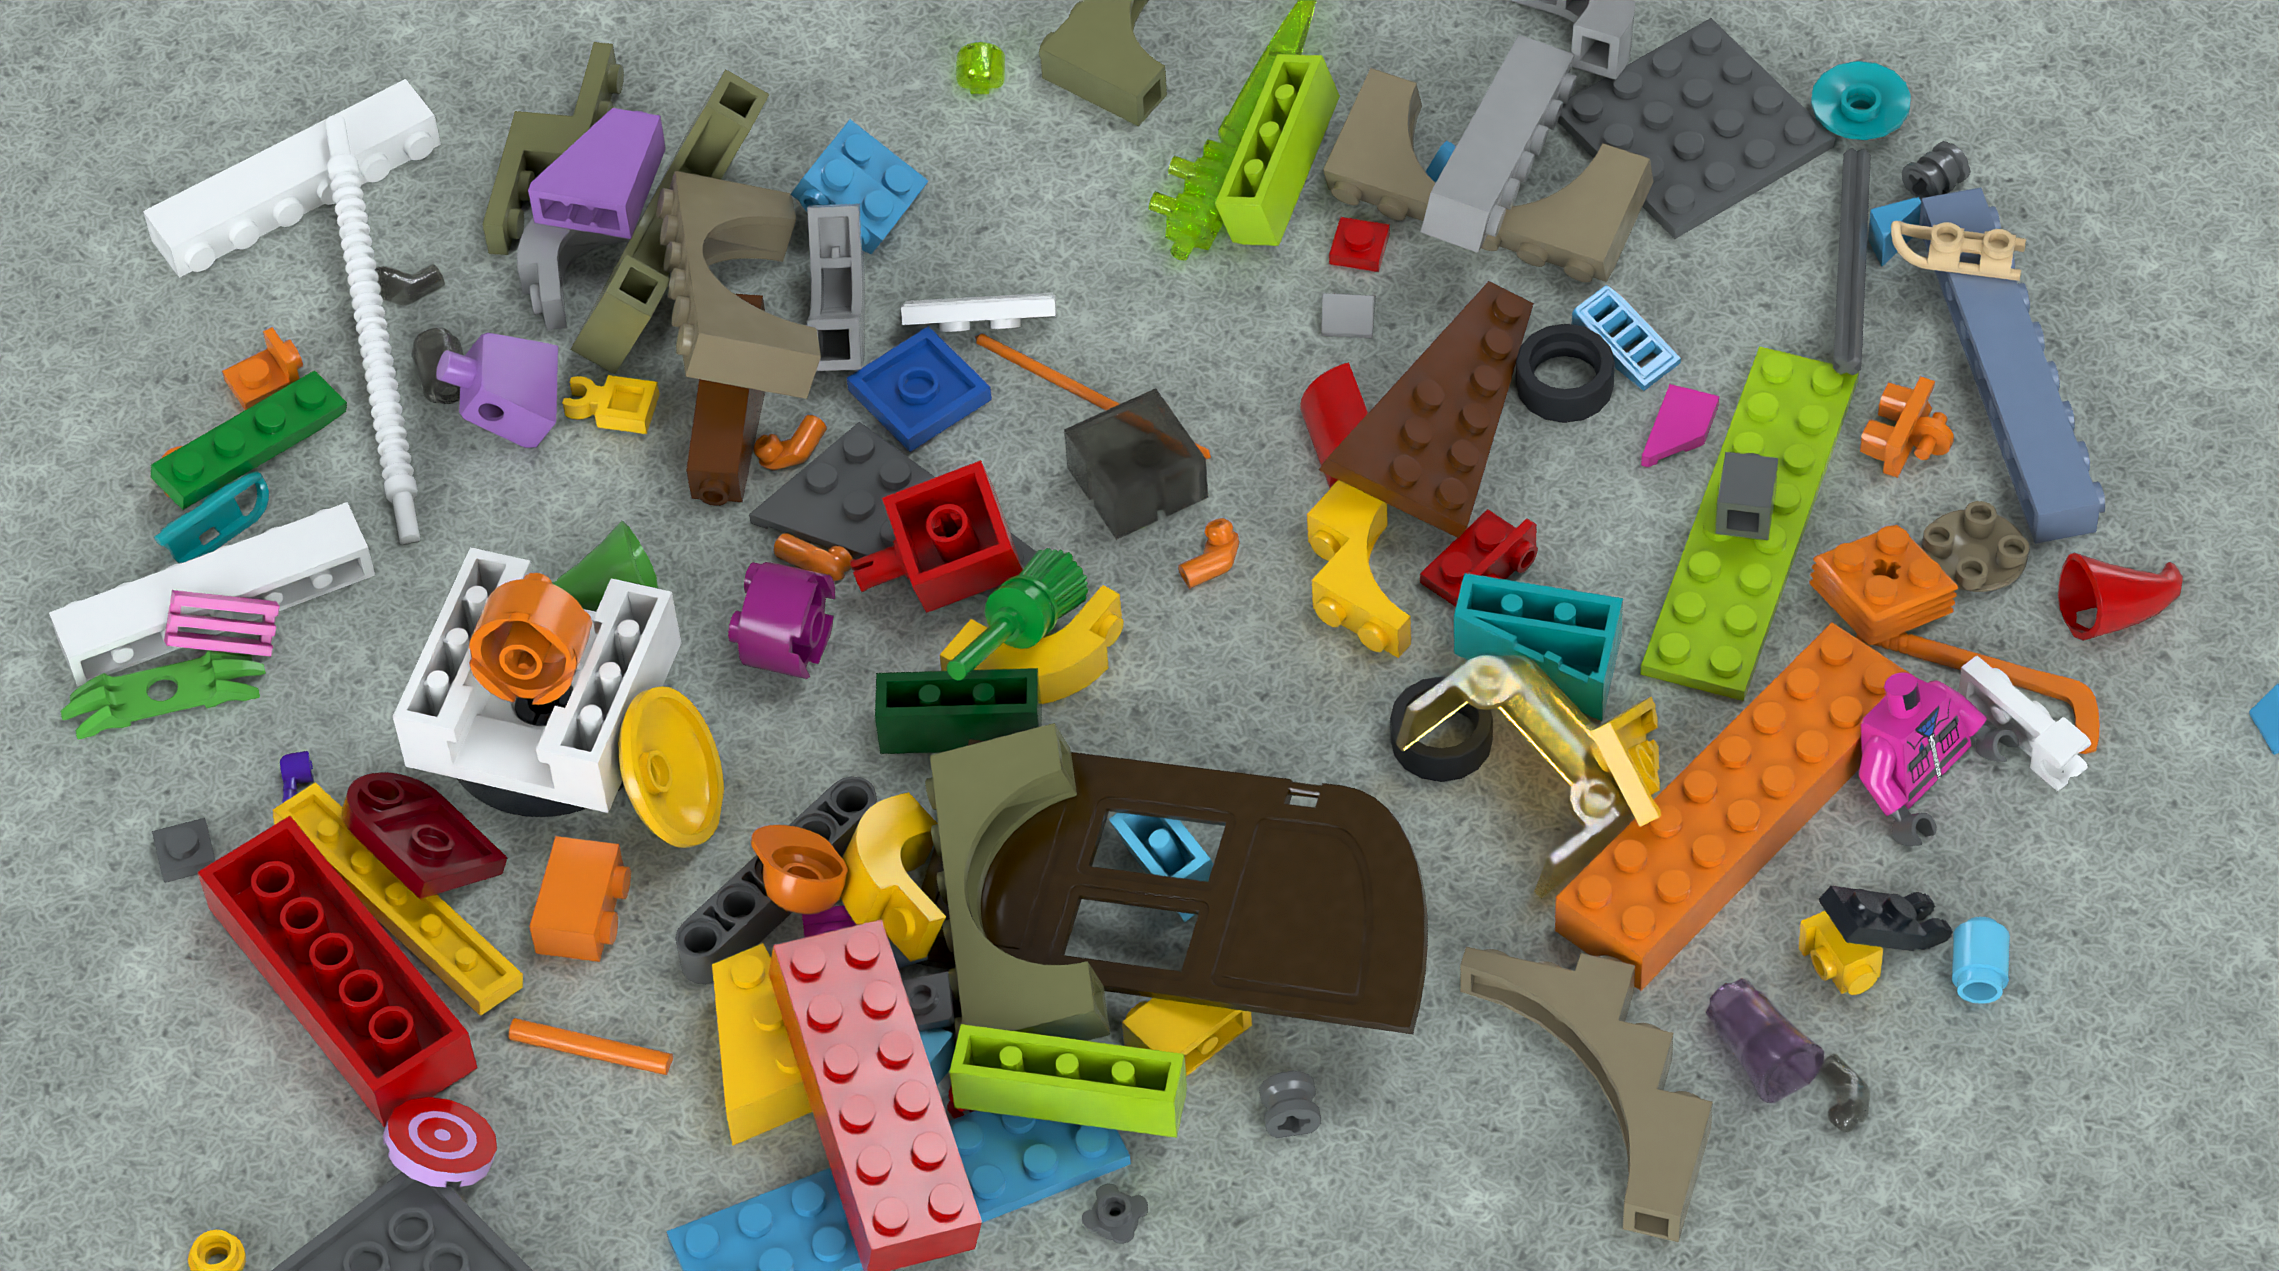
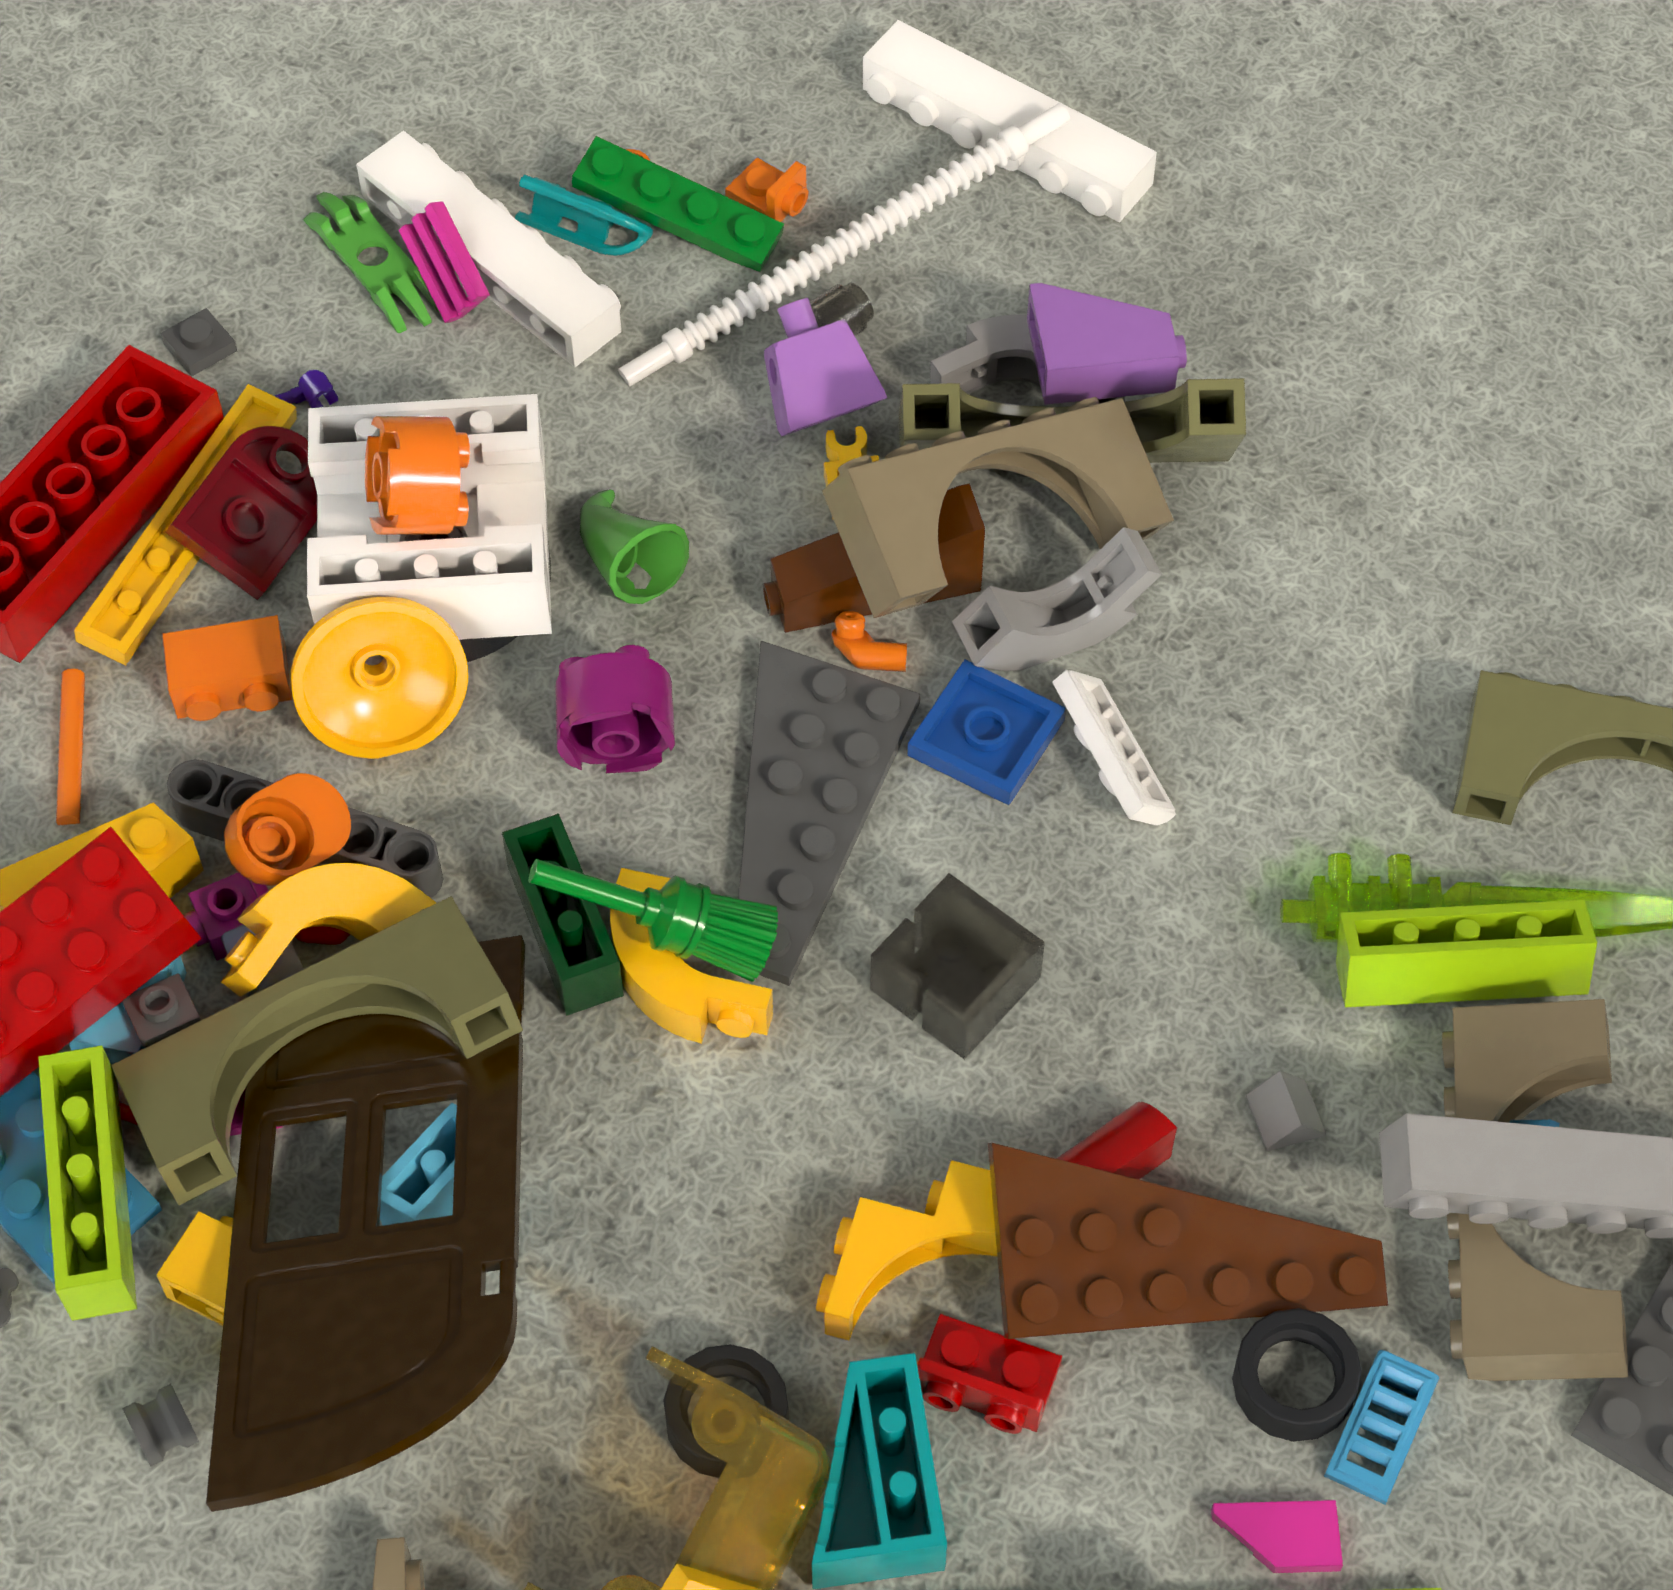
camera: 65 degrees right, 5 degrees up
(407, 288) = (922, 256): clear smoke arm -> none
(539, 140) = (1146, 283): olive bracket -> none
(813, 558) = (724, 714): orange arm -> none
(862, 171) = (1216, 578): dark azure plate -> none
(946, 540) = (763, 817): red brick -> none
(980, 67) = (1446, 634): clear neon green piece -> none
(1054, 376) = (1058, 899): orange axle -> none
(1217, 555) = (887, 1097): orange arm -> none
(1359, 244) = (1389, 1089): red plate -> none

